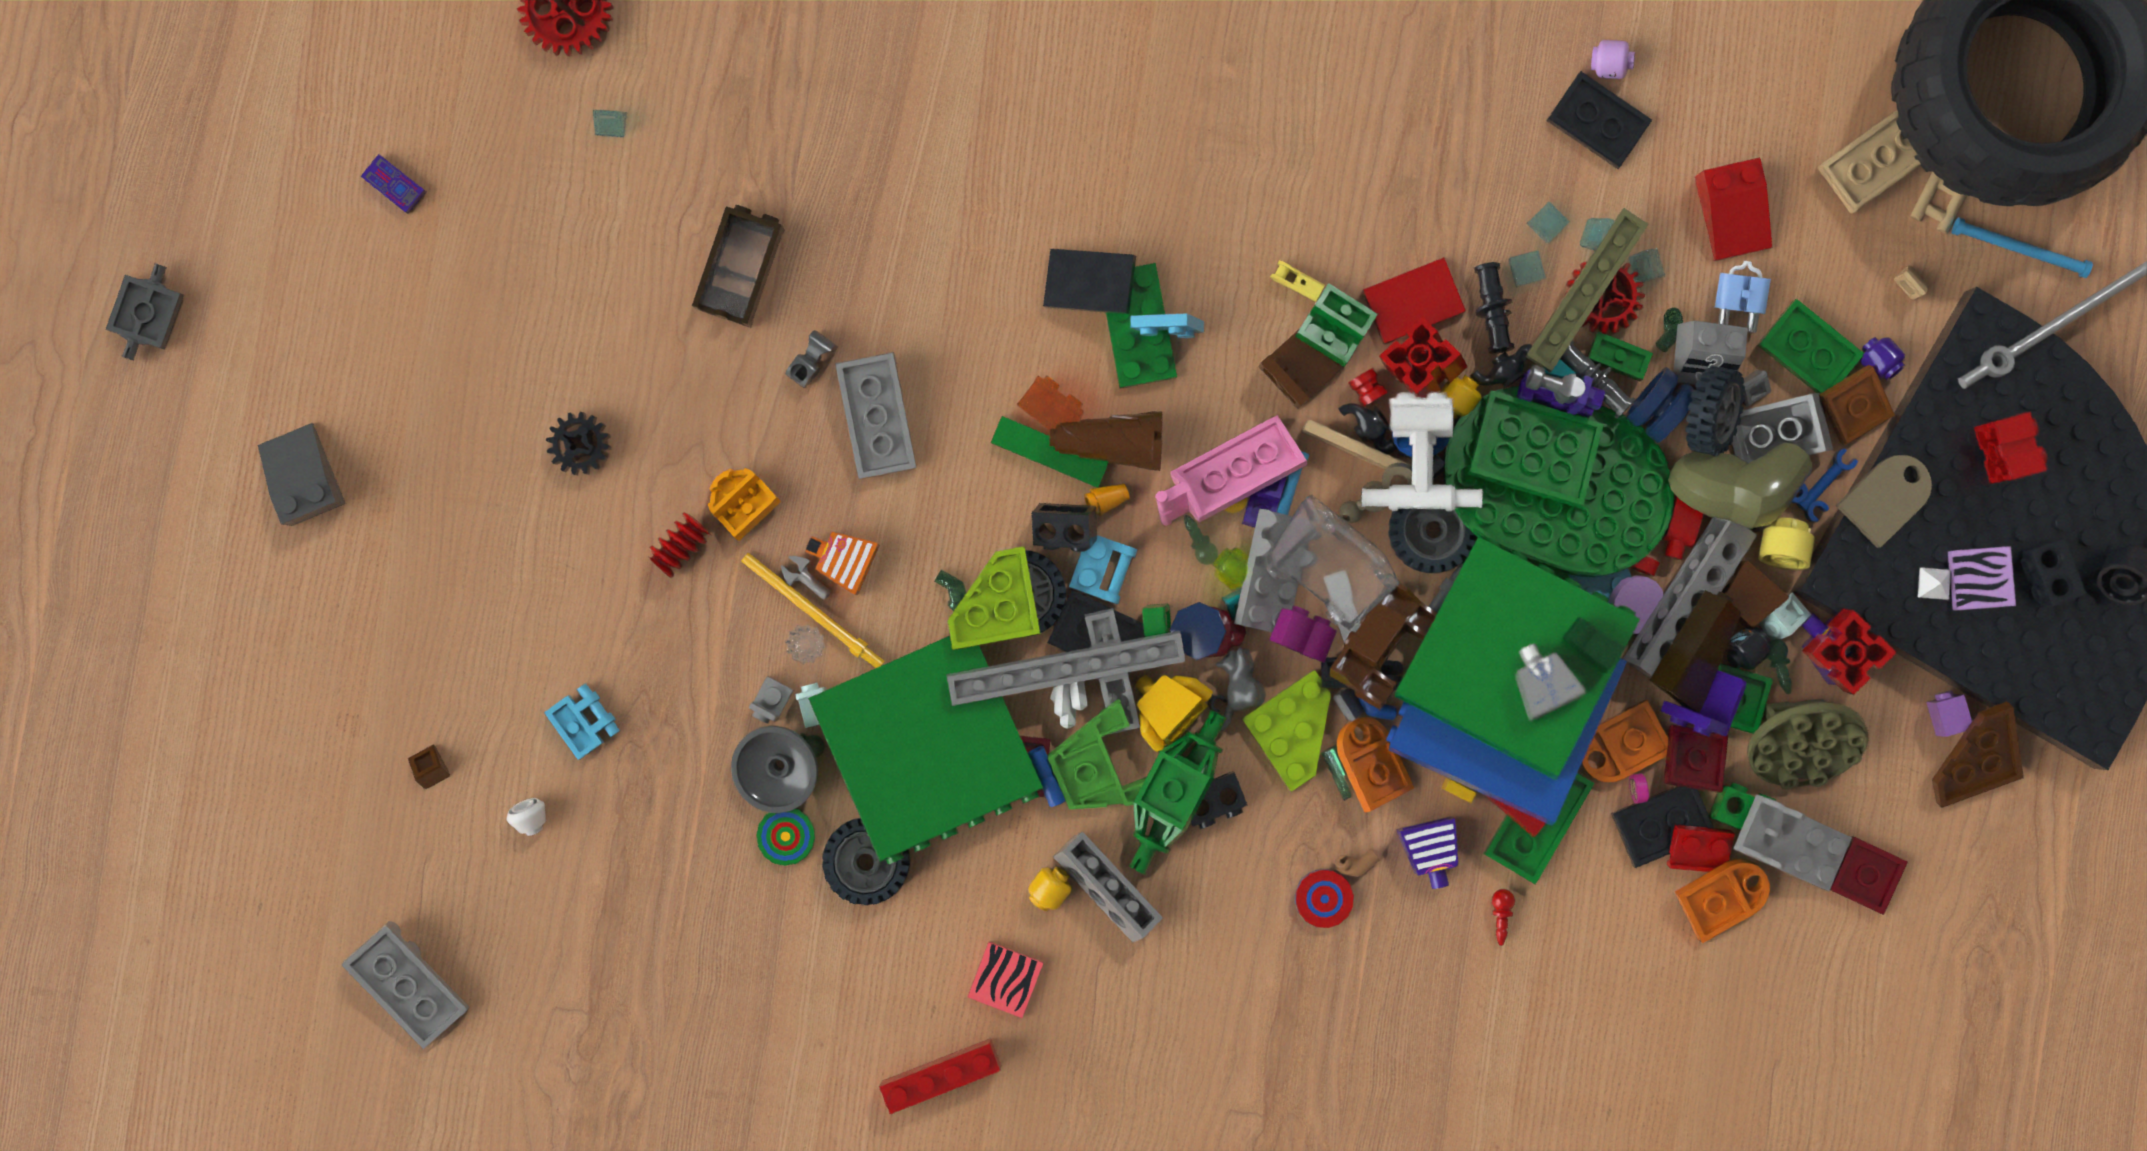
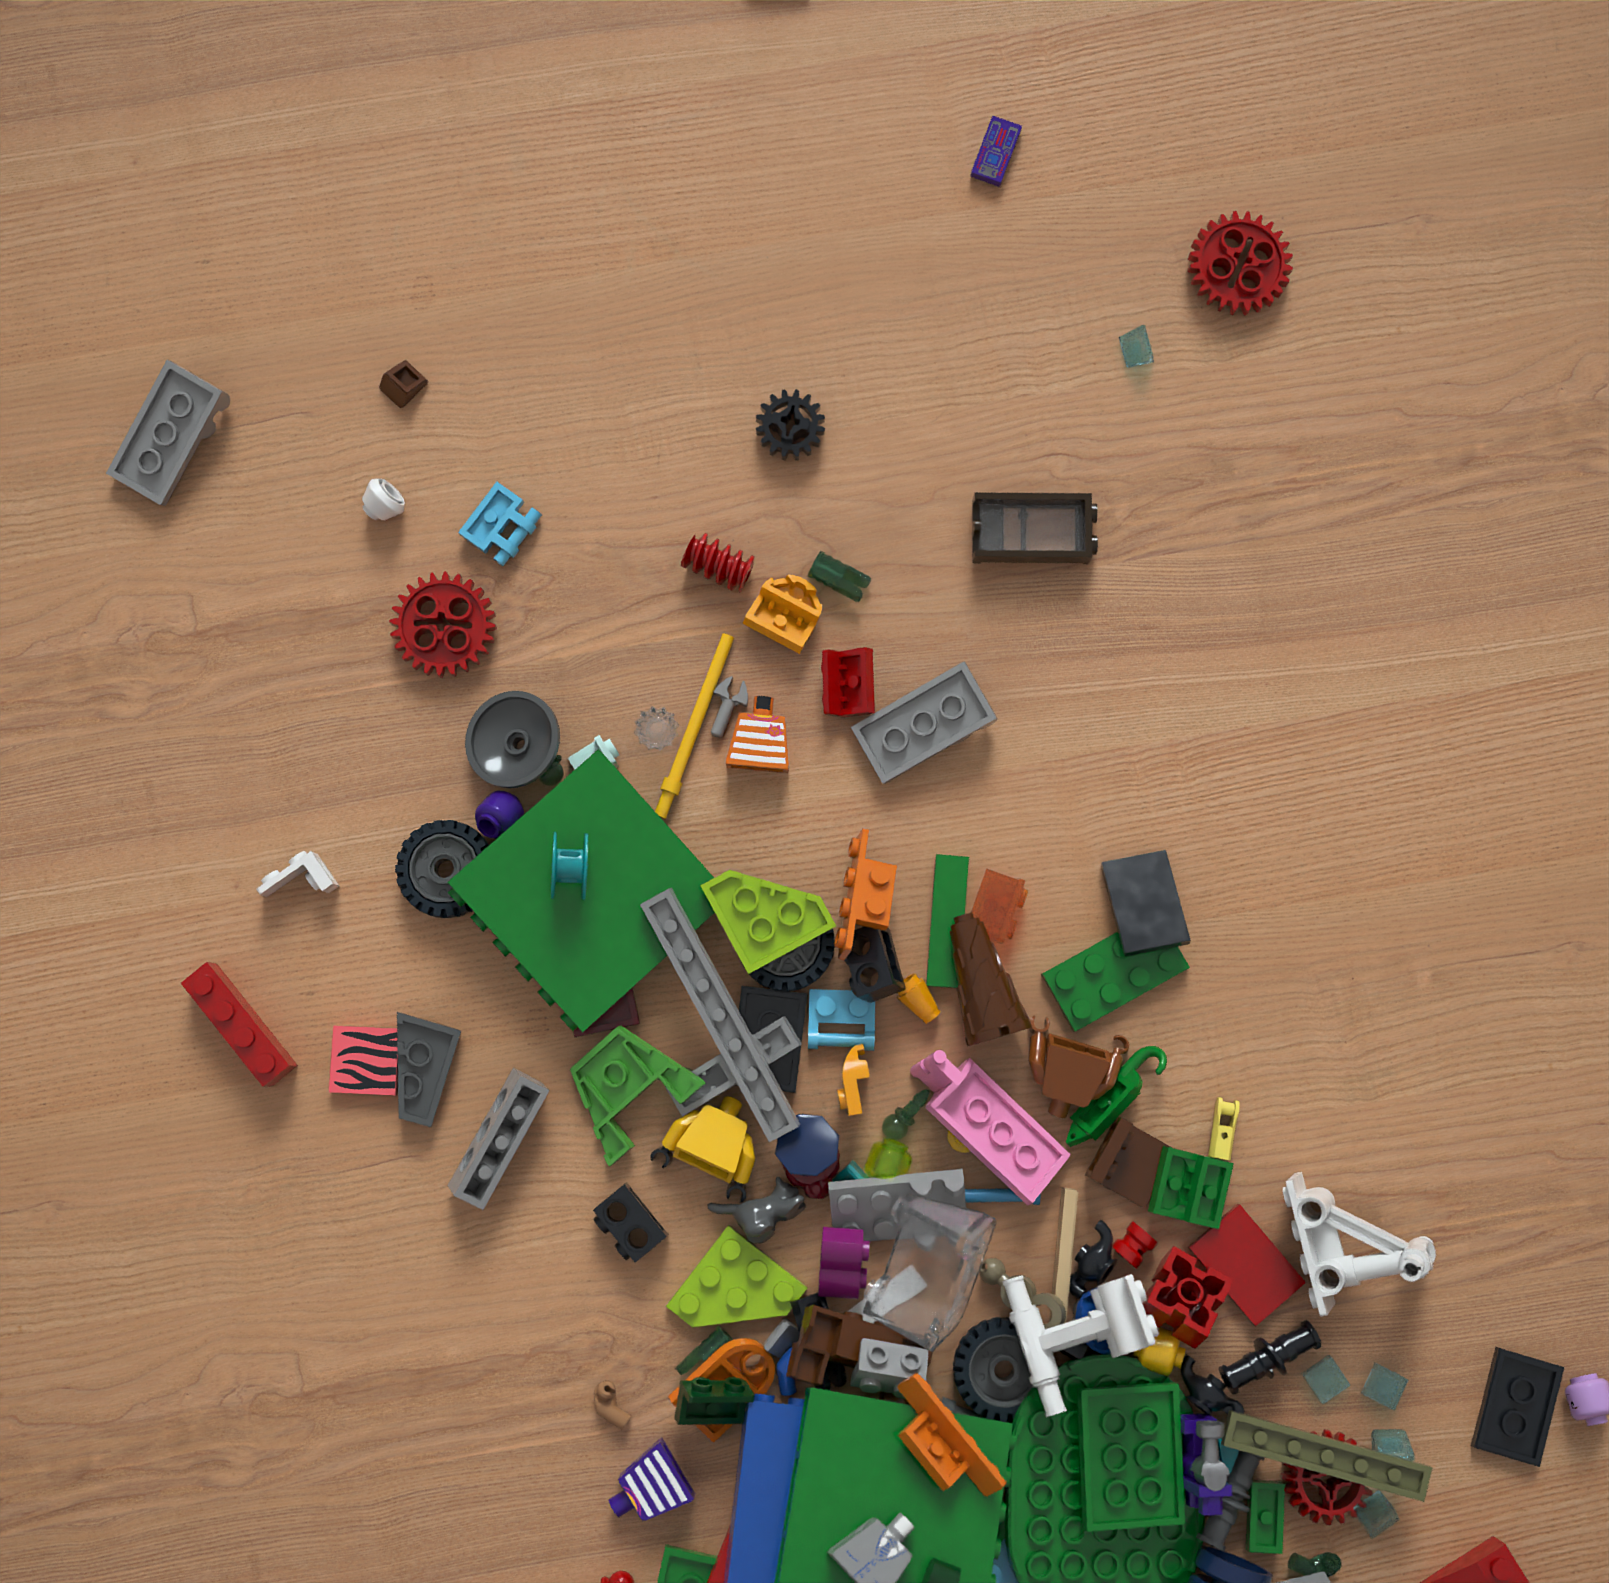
camera: 70 degrees right, 5 degrees down
(299, 476) = (661, 155): dark grey slope -> none
(679, 807) = (446, 596): none -> red gear
(721, 451) = (839, 576): none -> clear green hinge
(770, 700) = (584, 712): light grey bracket -> none
(786, 837) = (445, 776): tile -> none
(805, 367) = (949, 631): dark grey leg -> none
(819, 468) = (848, 682): none -> red bracket
(834, 801) = (498, 813): none -> dark purple head
(835, 971) = (317, 875): none -> white bracket
(900, 753) = (569, 865): none -> teal piece
(955, 588) = (770, 866): clear green arm -> none
(1007, 511) = (868, 894): none -> orange bracket
(1026, 931) = (423, 1066): none -> dark grey wing
(1045, 773) = (600, 1029): blue piece -> none
(1049, 888) = (477, 1076): yellow head -> none
(1067, 700) = (686, 1028): white rock -> none
(1149, 574) = (851, 1071): none -> light orange slope
(1156, 619) = (805, 1096): green slope -> none
(1175, 791) = (625, 1177): green plate -> none
(1177, 324) = (1132, 1015): medium azure plate -> none
(1208, 390) = (1071, 1070): none -> dark orange torso
(1241, 364) = (1101, 1113): none -> green plate
(1264, 499) = (975, 1172): dark purple slope -> none
(1324, 898) = (560, 1381): red tile -> none
(1381, 776) = (712, 1401): none -> dark green bracket
(1402, 622) = (886, 1365): none -> light grey bracket
(1423, 233) = (1324, 1248): none -> white plate
(1459, 790) = (726, 1493): yellow plate -> none
(1474, 599) = (942, 1443): none -> orange bracket

